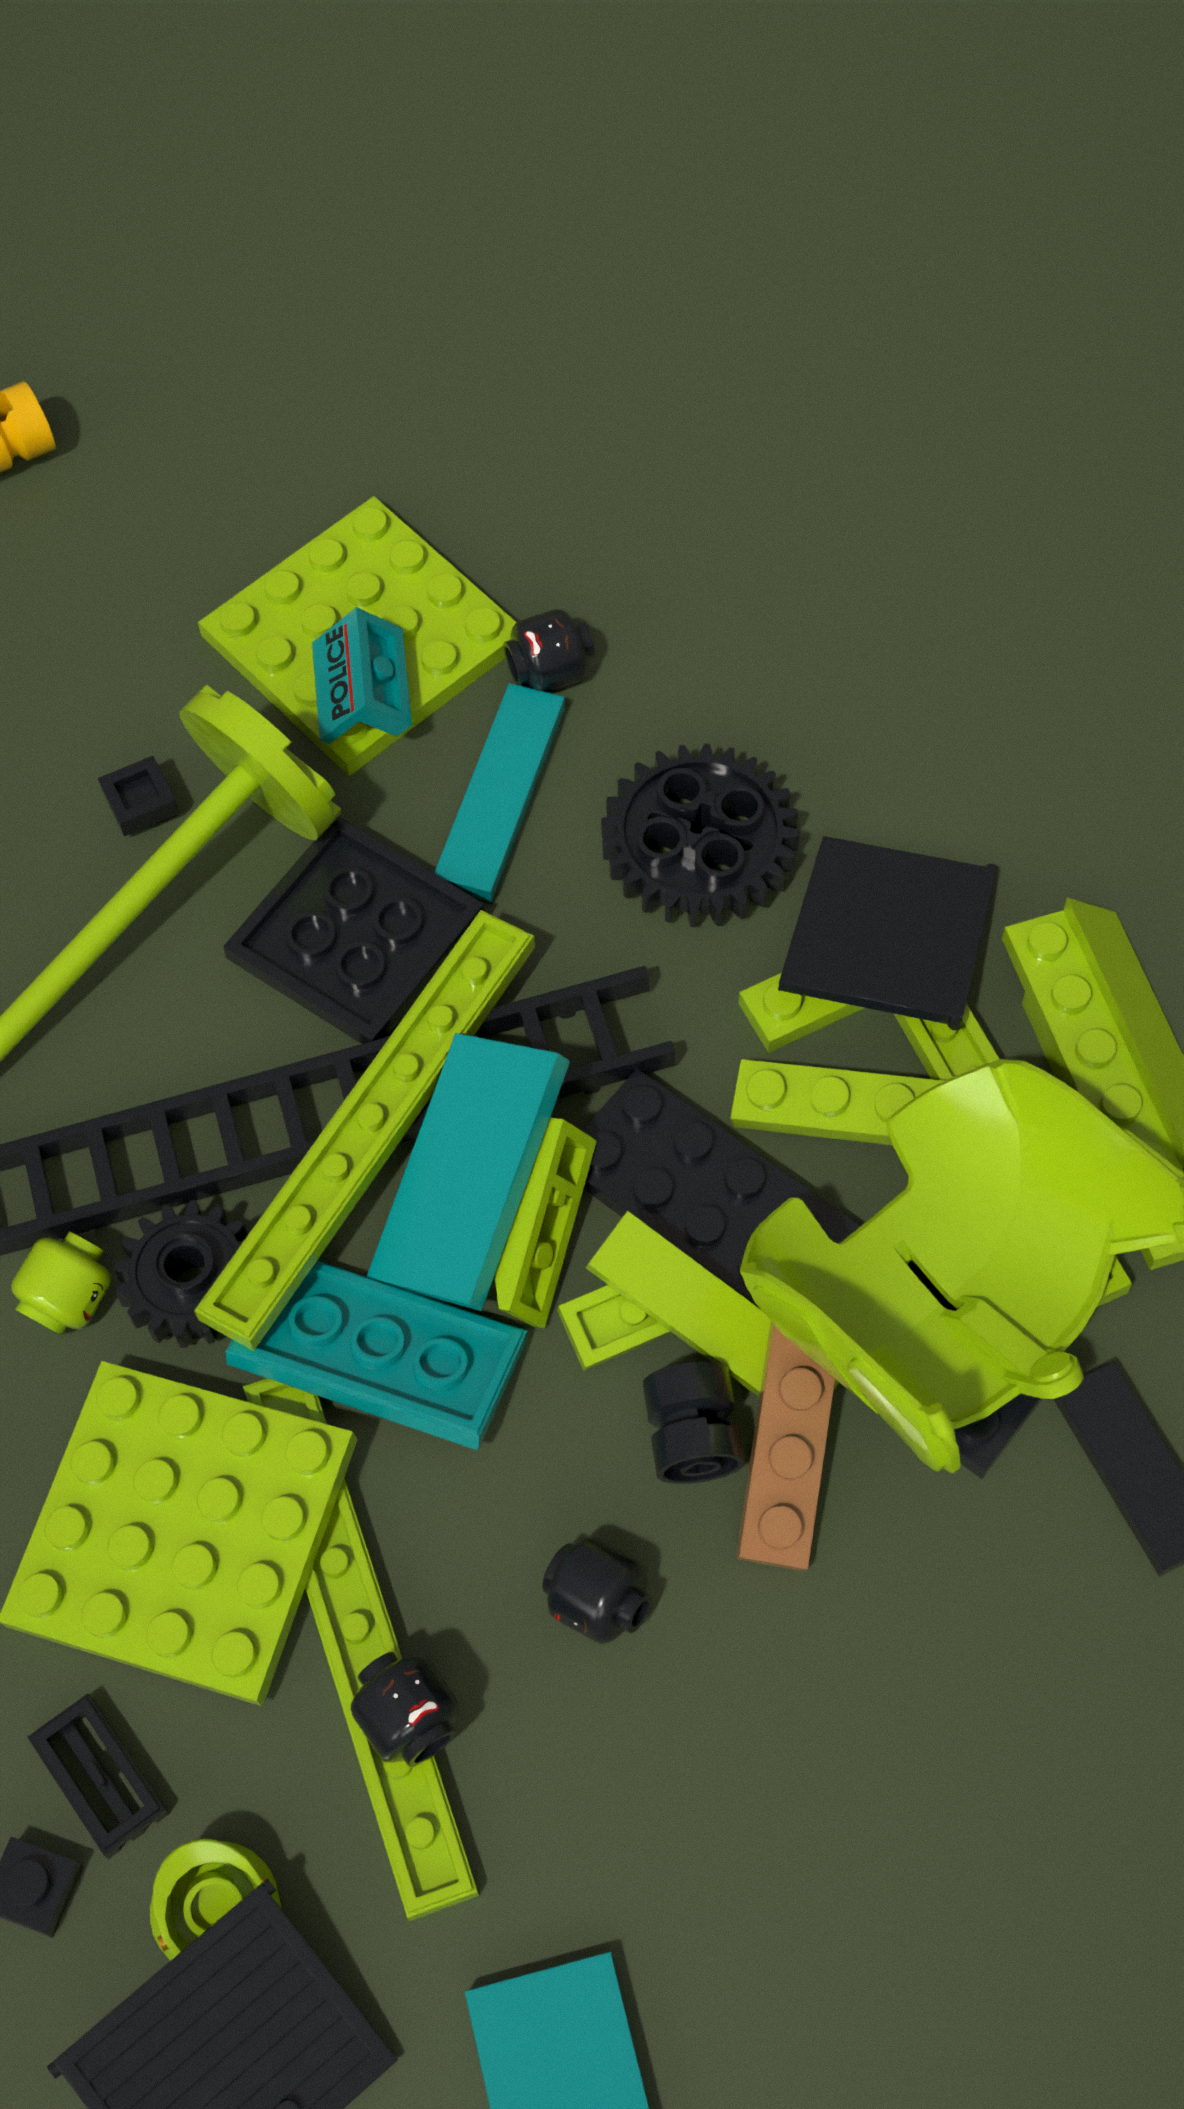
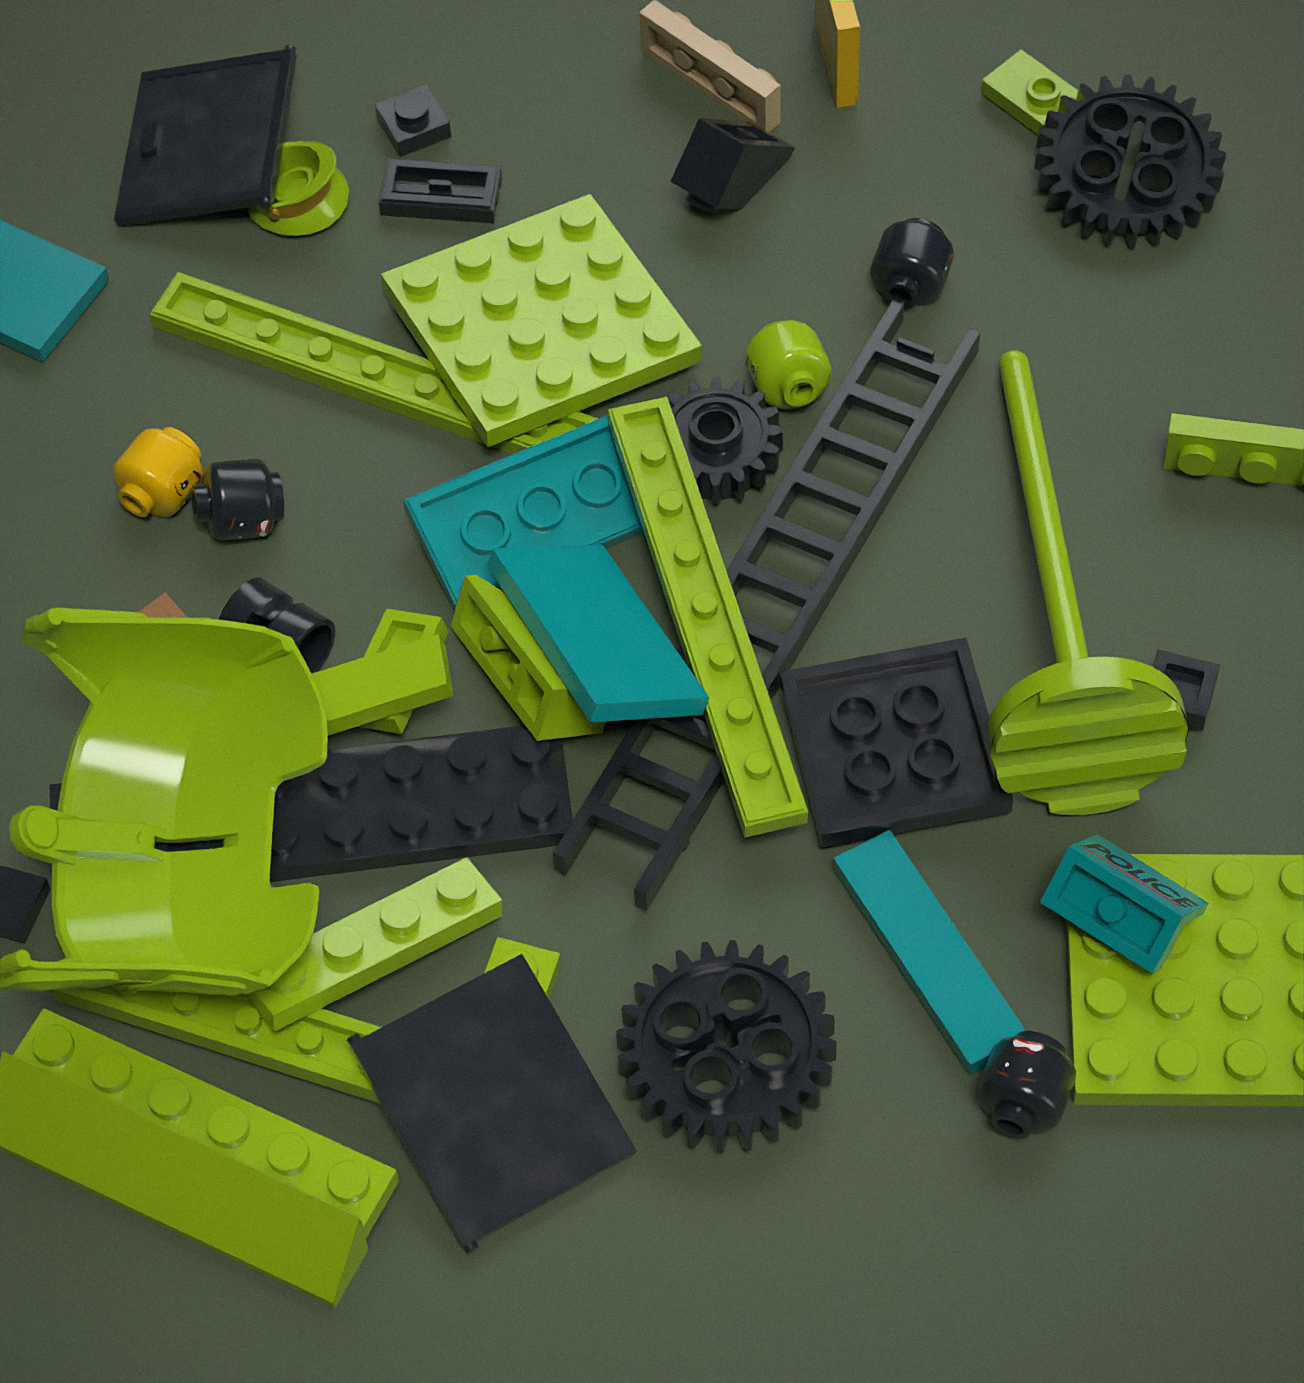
camera: 135 degrees right, 5 degrees down
(405, 1708) = (281, 331): black head -> none
(634, 1692) = (158, 472): none -> yellow head

